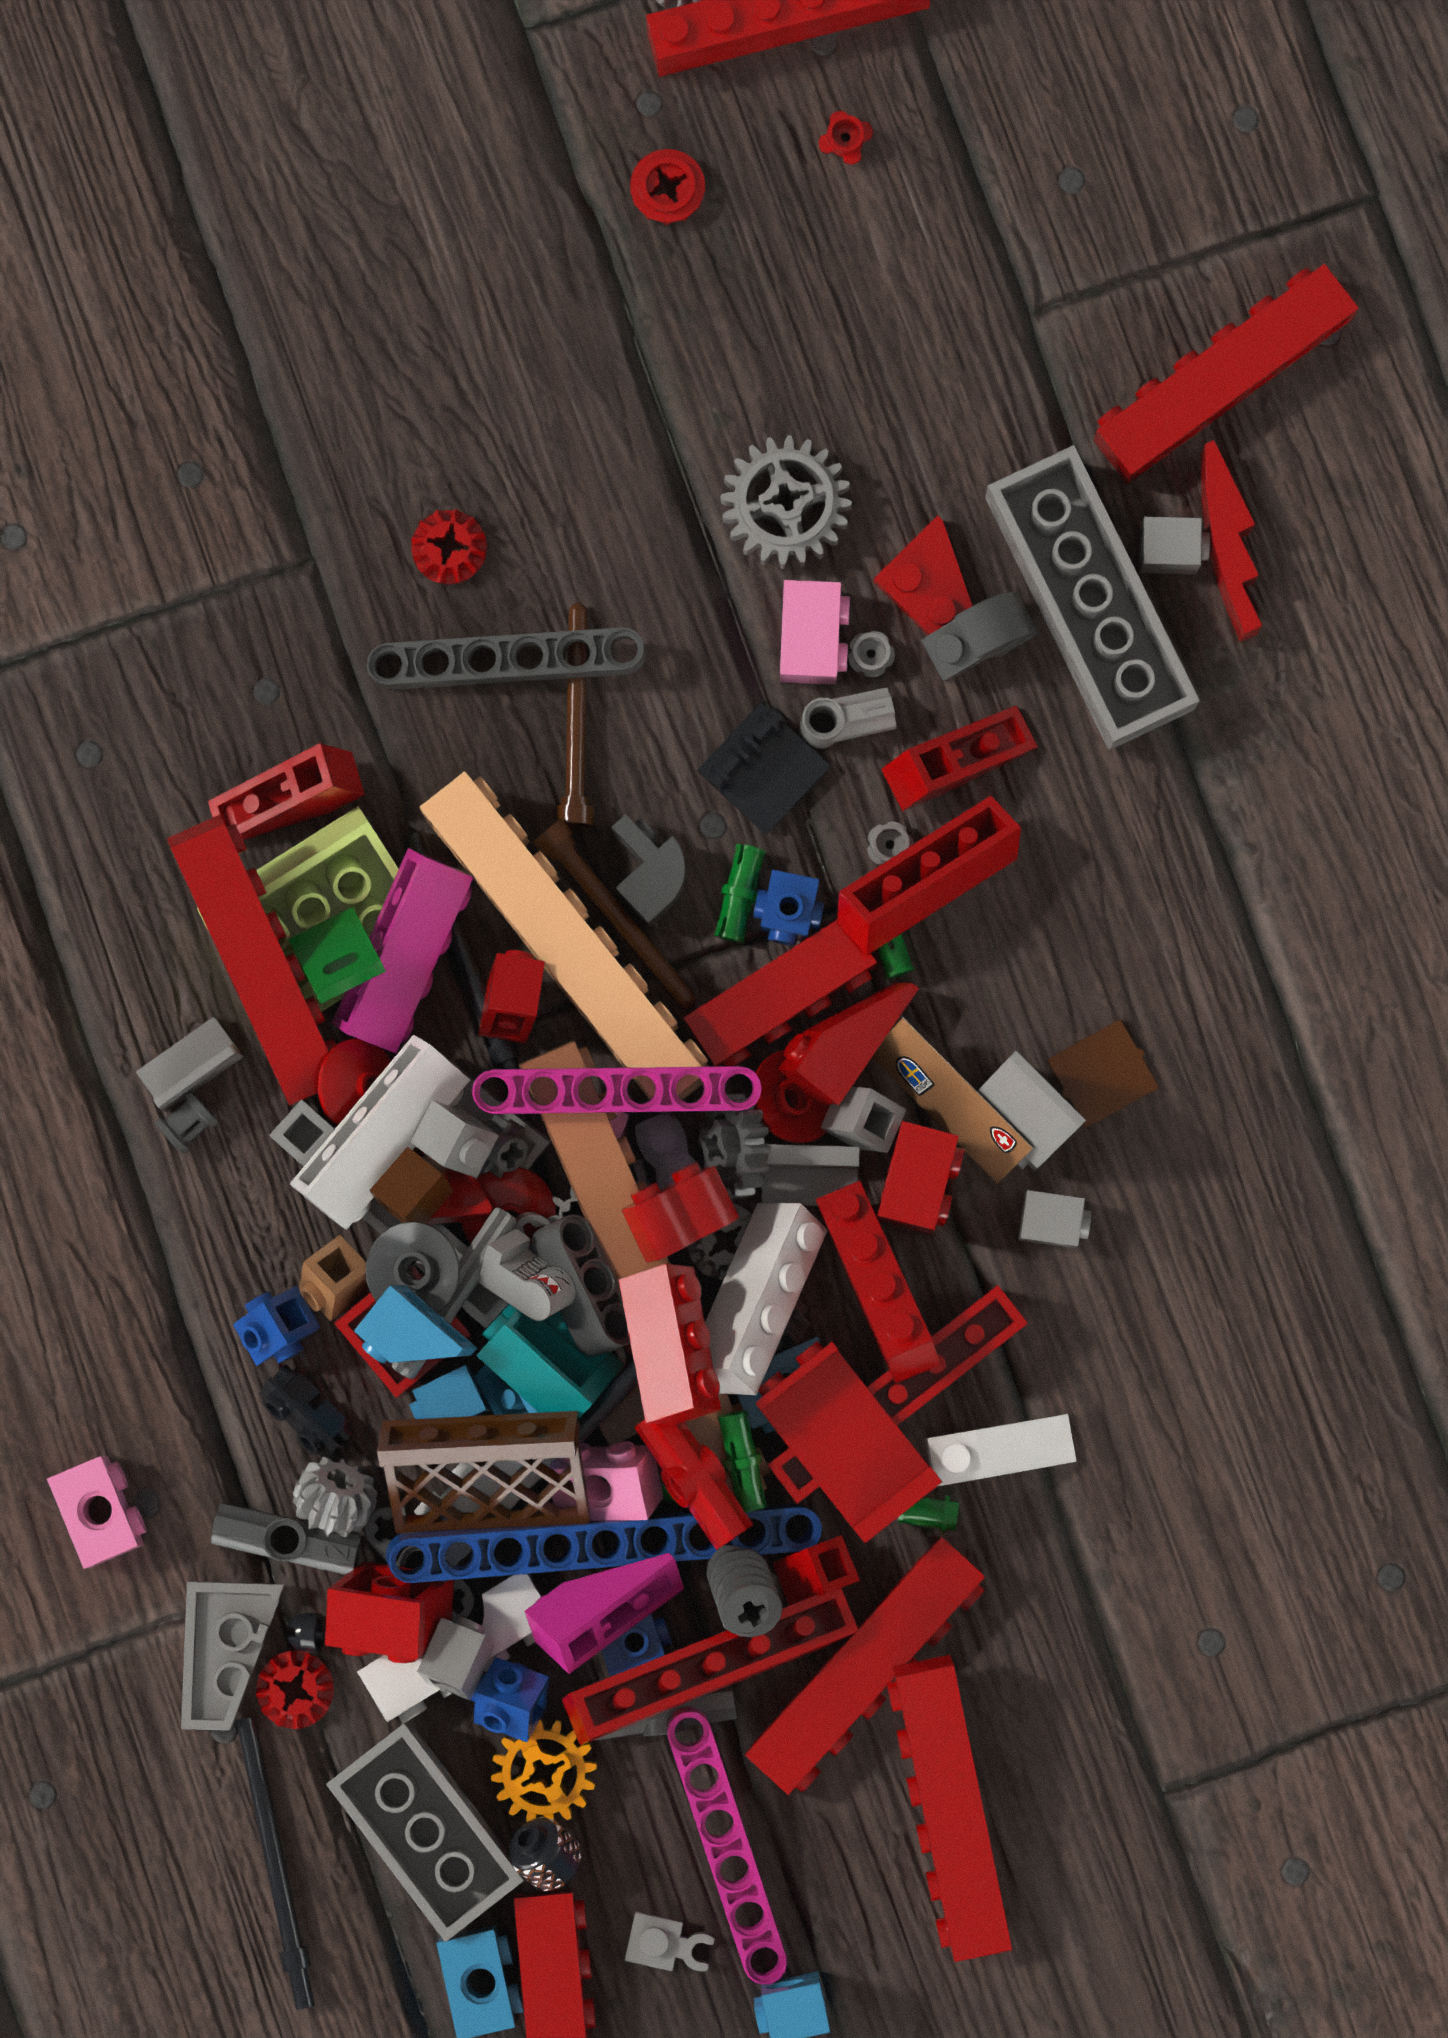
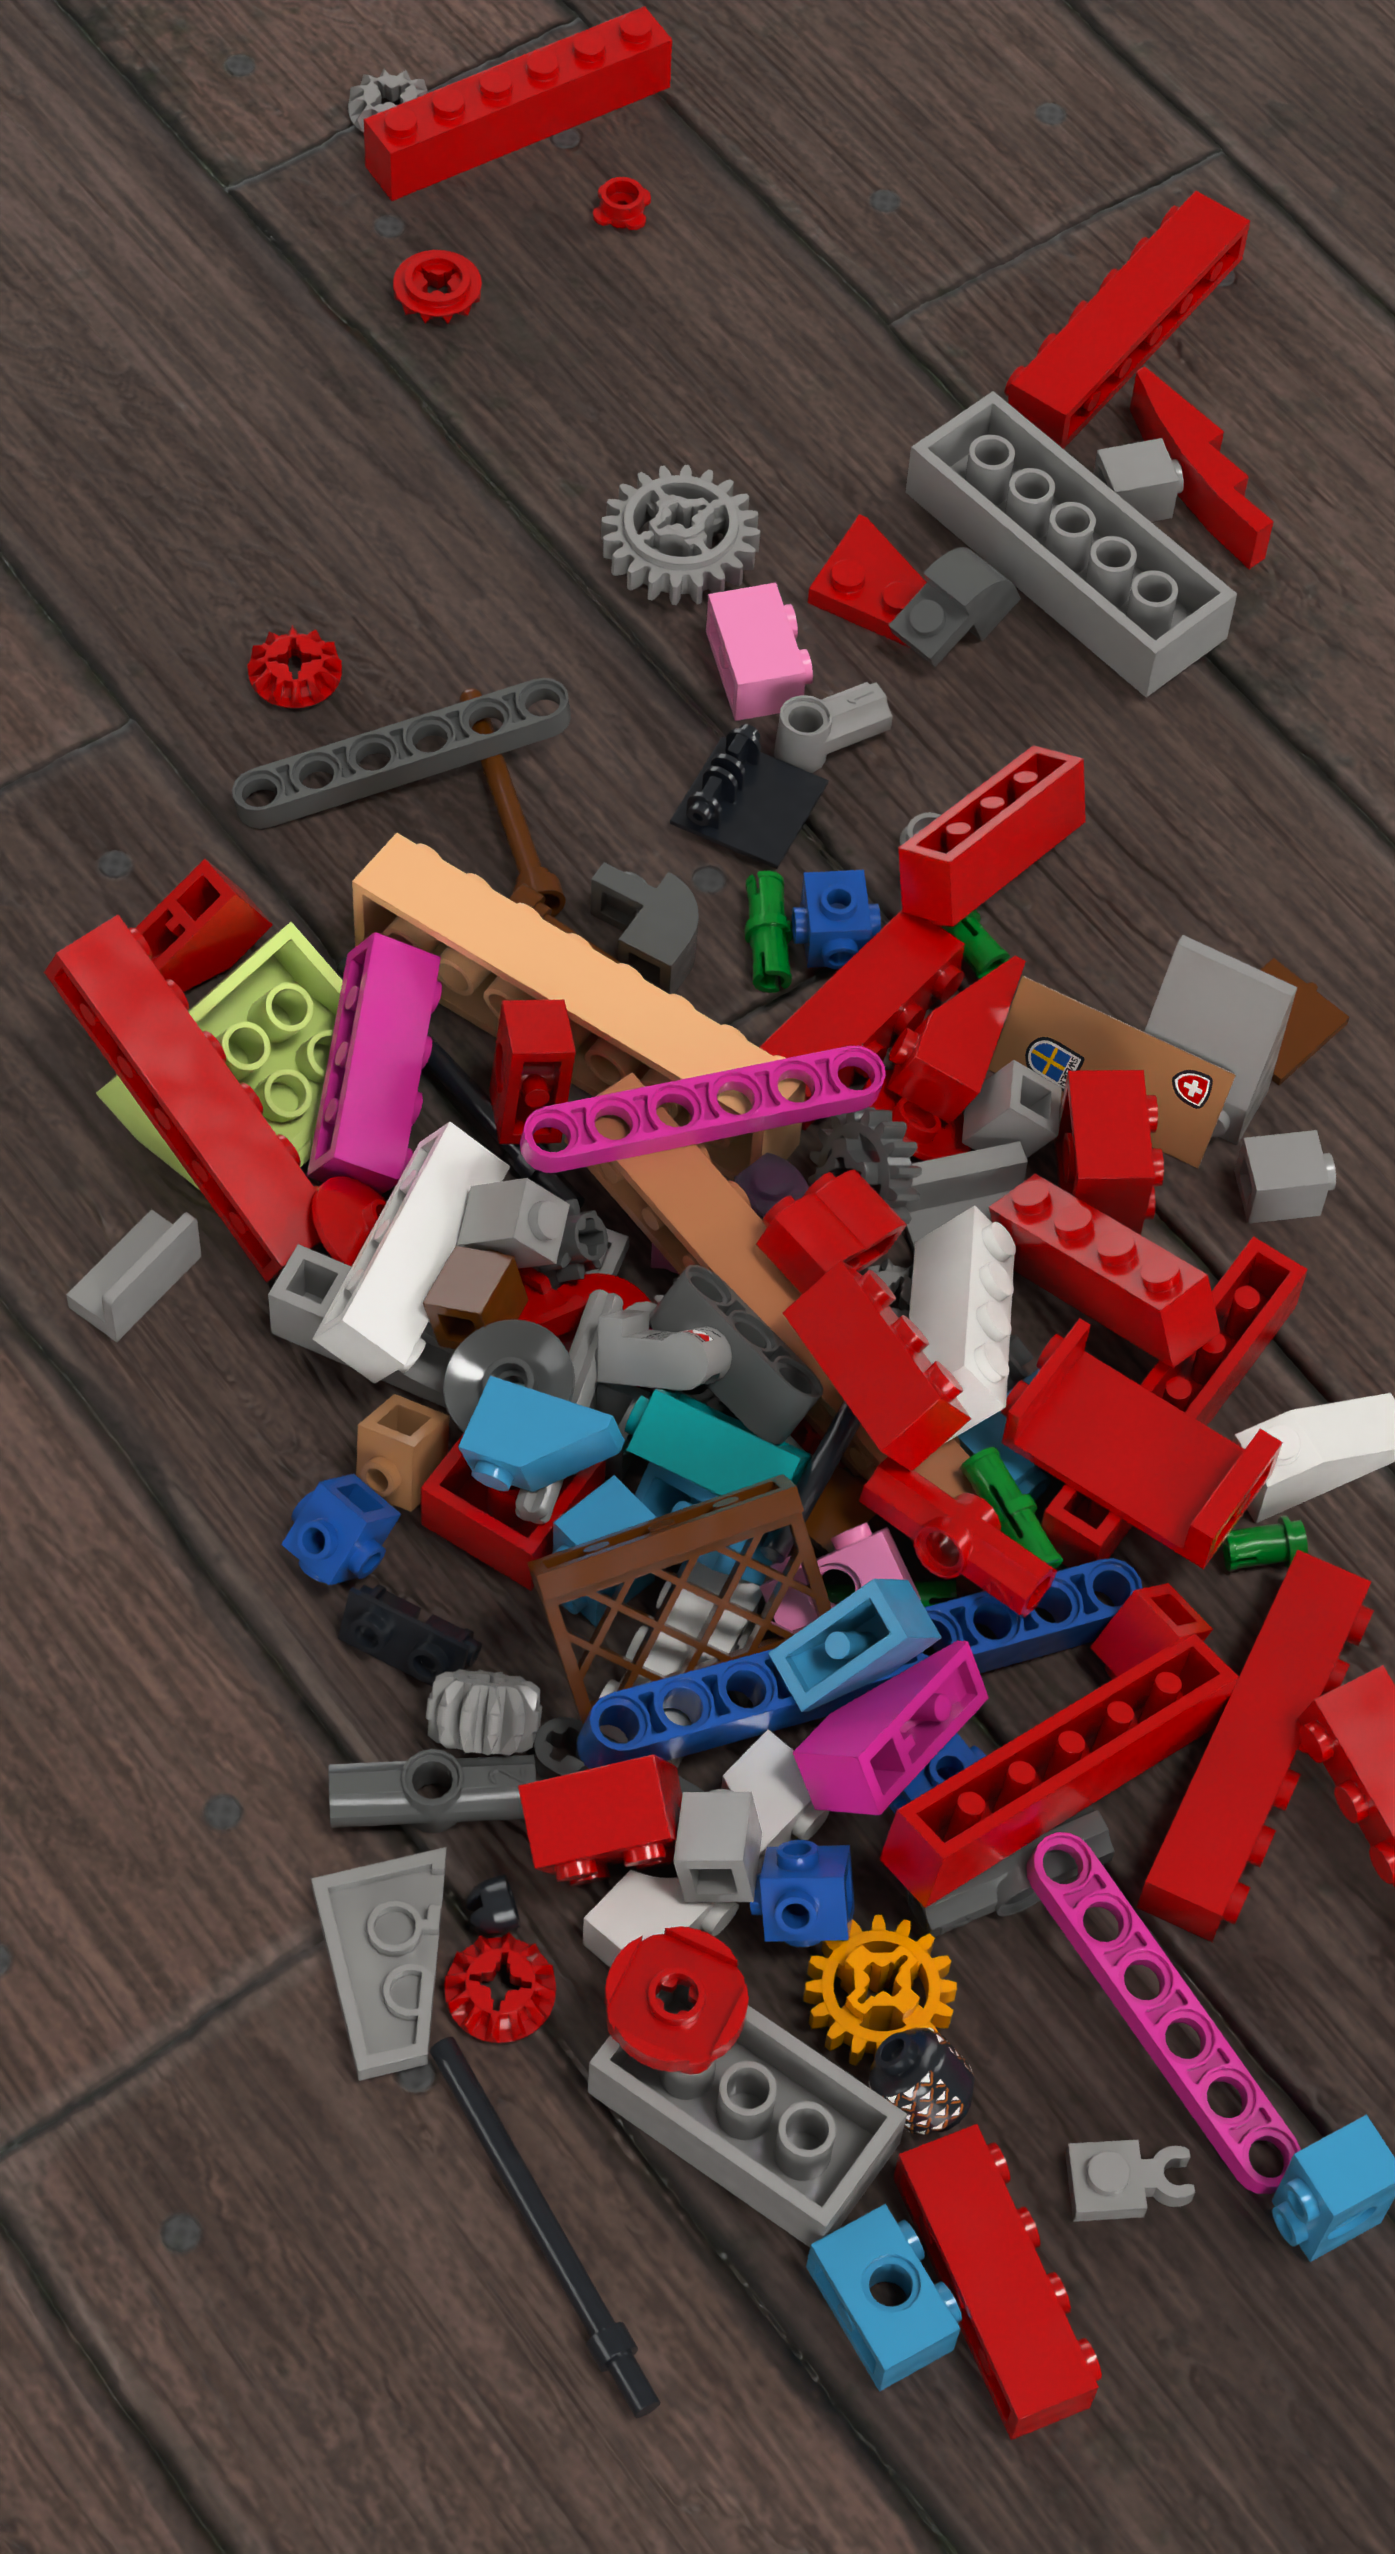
camera: 25 degrees left, 25 degrees down
(73, 1494) = (170, 1861): bright pink brick -> none
(186, 1122) = (150, 1334): dark grey bush -> none
(336, 955) = (300, 1070): green piece -> none
(392, 1793) = (684, 2039): none -> red plate
(591, 1548) = (855, 1643): none -> dark azure slope
(743, 1591) = (1075, 1649): dark grey piece -> none
(871, 641) = (838, 650): light grey plate -> none
(958, 757) = (970, 735): red slope -> none

